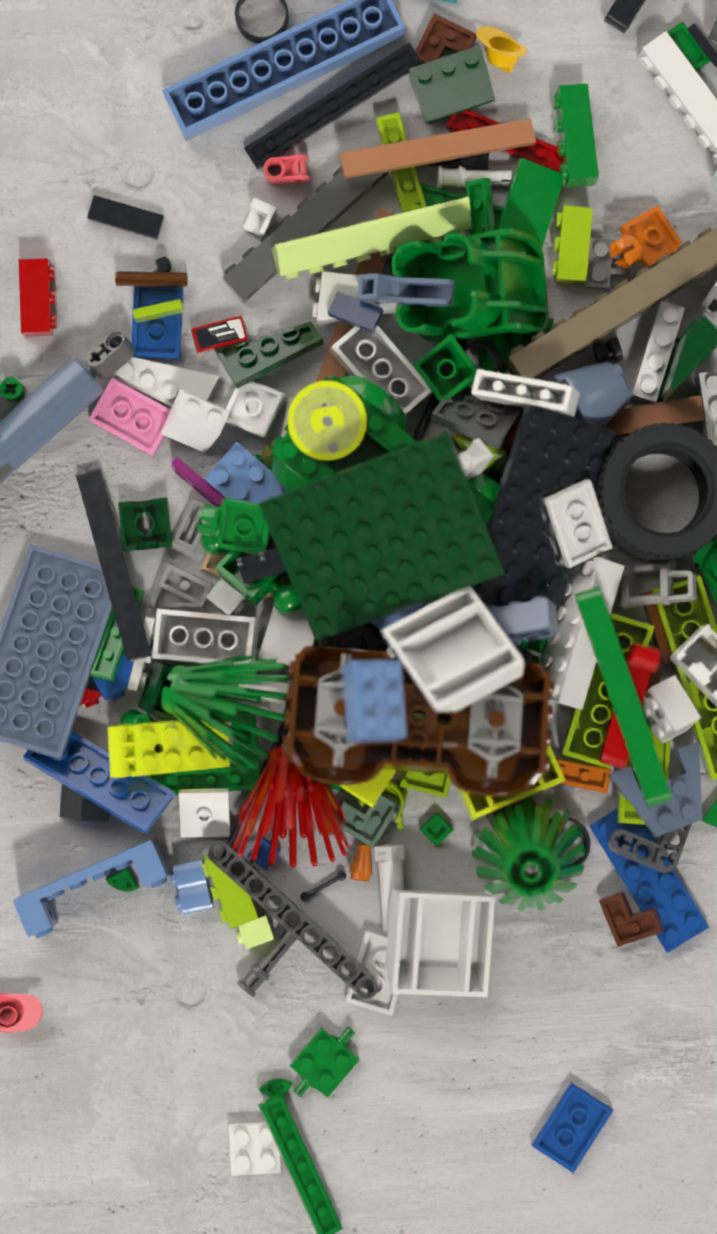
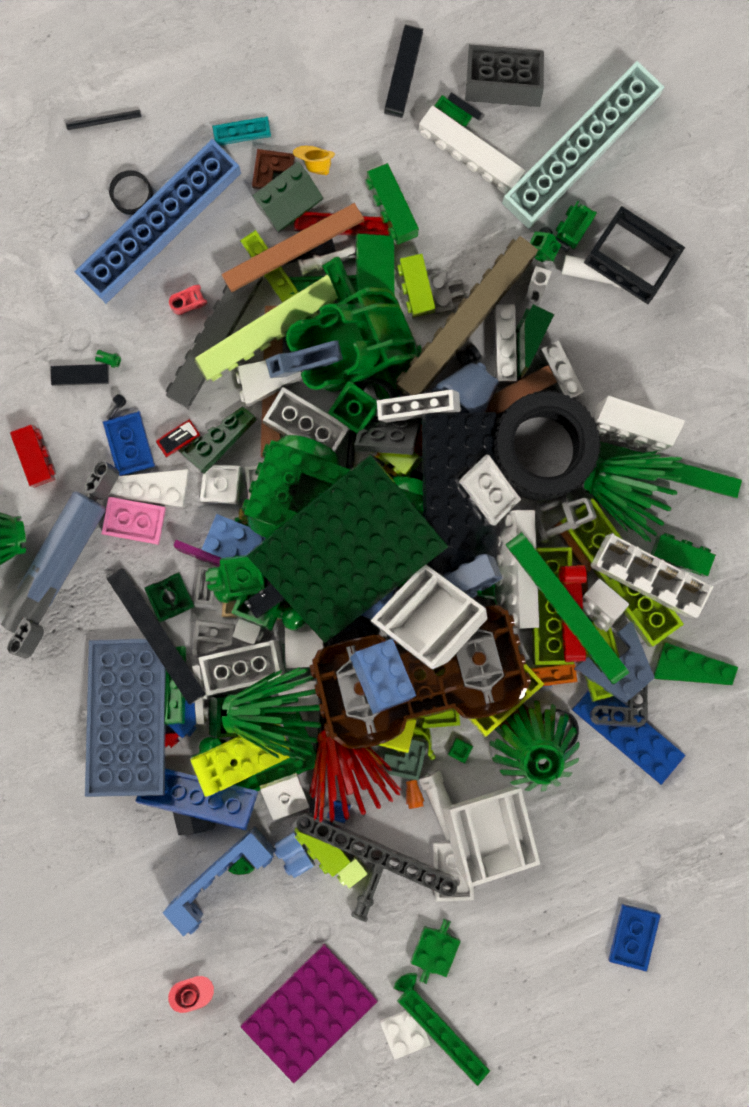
camera: 20 degrees left, 0 degrees up
(20, 389) = (33, 533): green bush -> none
(146, 1085) = (309, 1013): none -> magenta plate
(151, 279) = (113, 414): reddish brown axle -> none
(158, 310) = (126, 435): lime tile -> none
(167, 209) = (108, 358): none -> green pin
(194, 421) = (180, 508): white slope -> none
(260, 217) = (179, 342): white panel -> none
(305, 896) = (380, 832): black hinge -> none
(327, 420) = (277, 476): neon yellow piece -> none
(333, 106) = (205, 241): black tile -> none
(355, 312) = (272, 388): tile -> none
(475, 458) = (397, 467): white panel -> none
(628, 926) = (625, 775): copper plate -> none
(645, 240) = (468, 264): orange plate -> none

